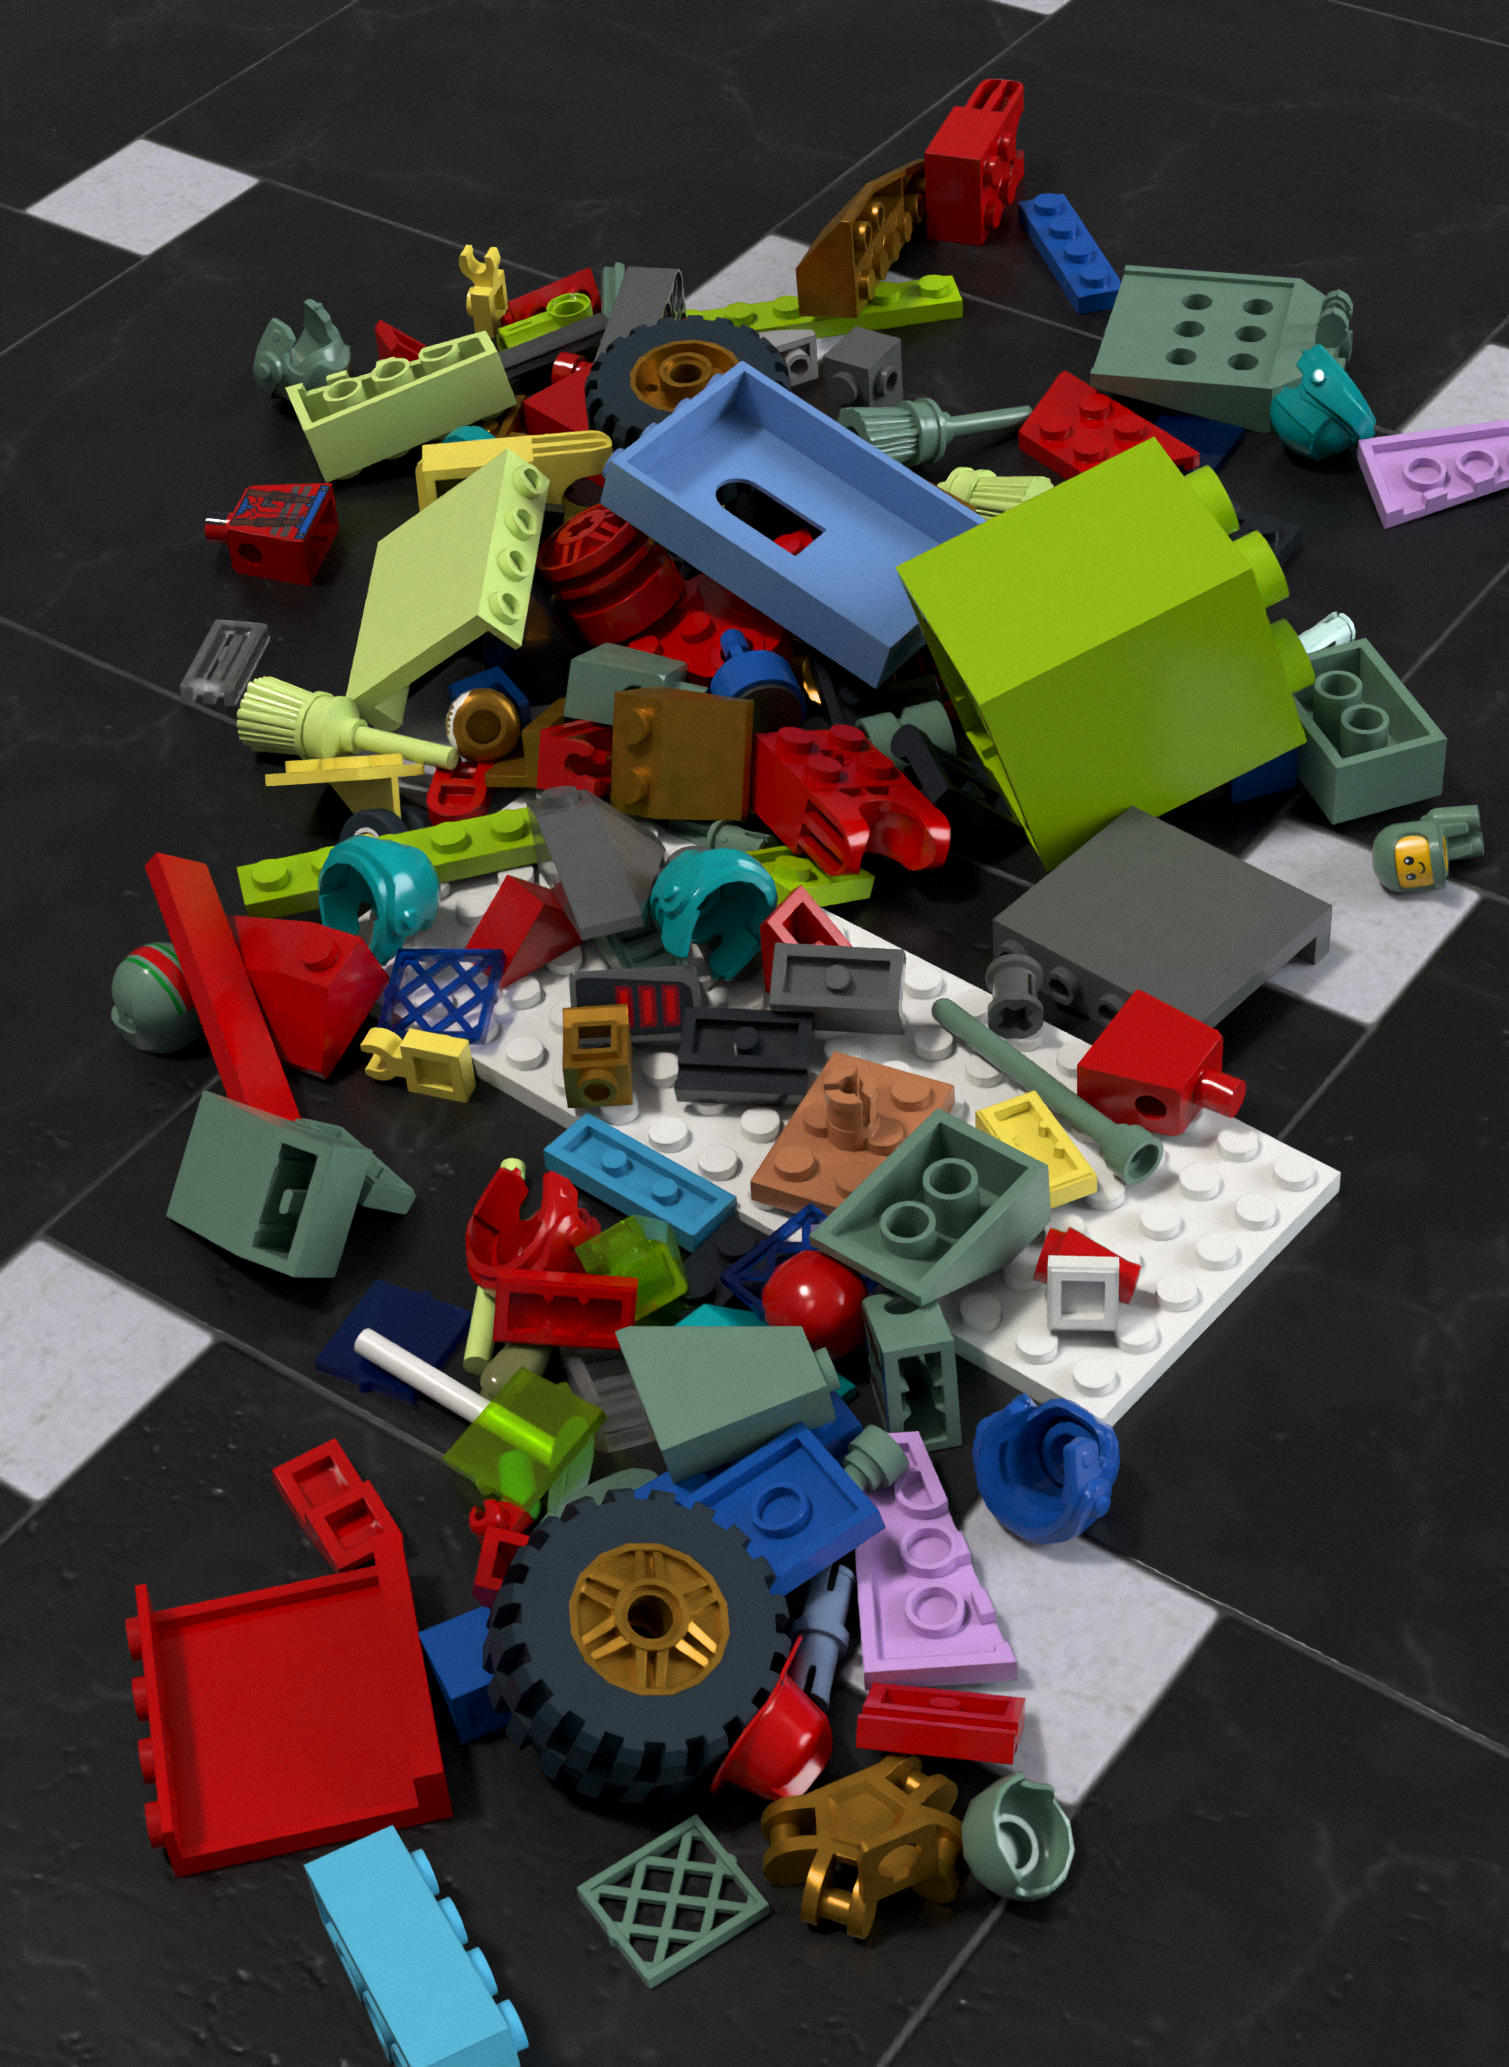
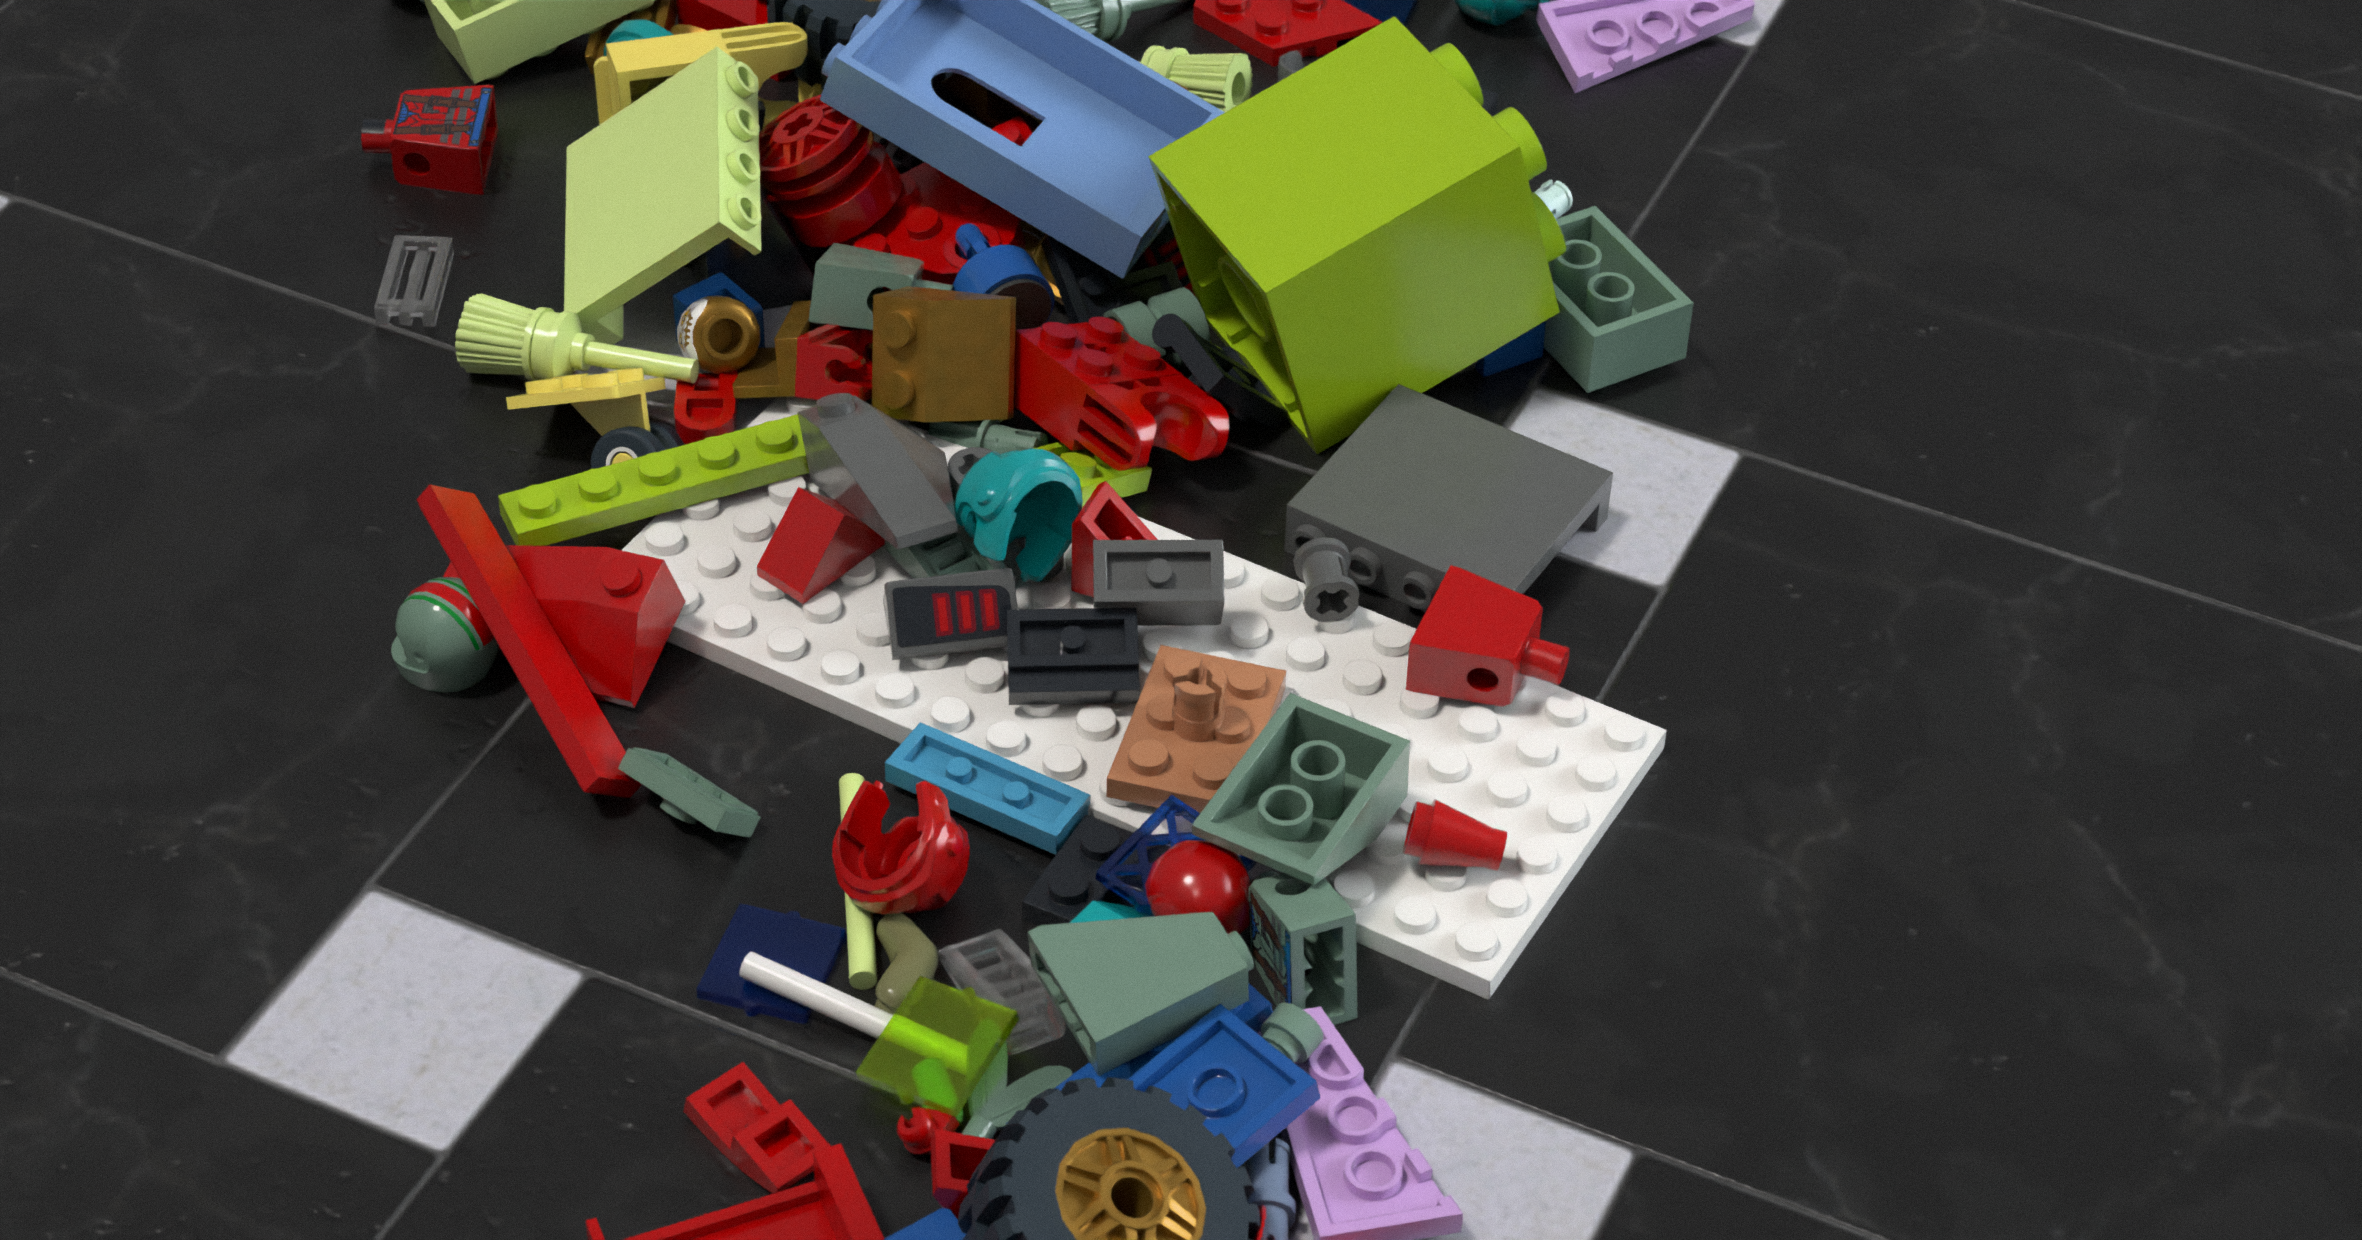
camera: 15 degrees left, 0 degrees up
(268, 1187) = (613, 817): sand green slope -> none
(388, 876) = (674, 501): teal helmet -> none
(428, 1061) = (742, 681): light yellow plate -> none
(444, 958) = (746, 653): clear blue window -> none
(563, 1308) = (954, 916): red plate -> none
(597, 1074) = (928, 683): pearl gold window -> none
(641, 1250) = (1014, 870): clear neon green slope -> none
(1033, 1129) = (1372, 703): light yellow plate -> none
(1045, 1468) = (1453, 1031): blue helmet -> none
(1082, 1293) = (1457, 862): white tile -> none
(1127, 1149) = (1469, 722): sand green piece -> none
(1419, 852) = (1678, 415): sand green piece -> none

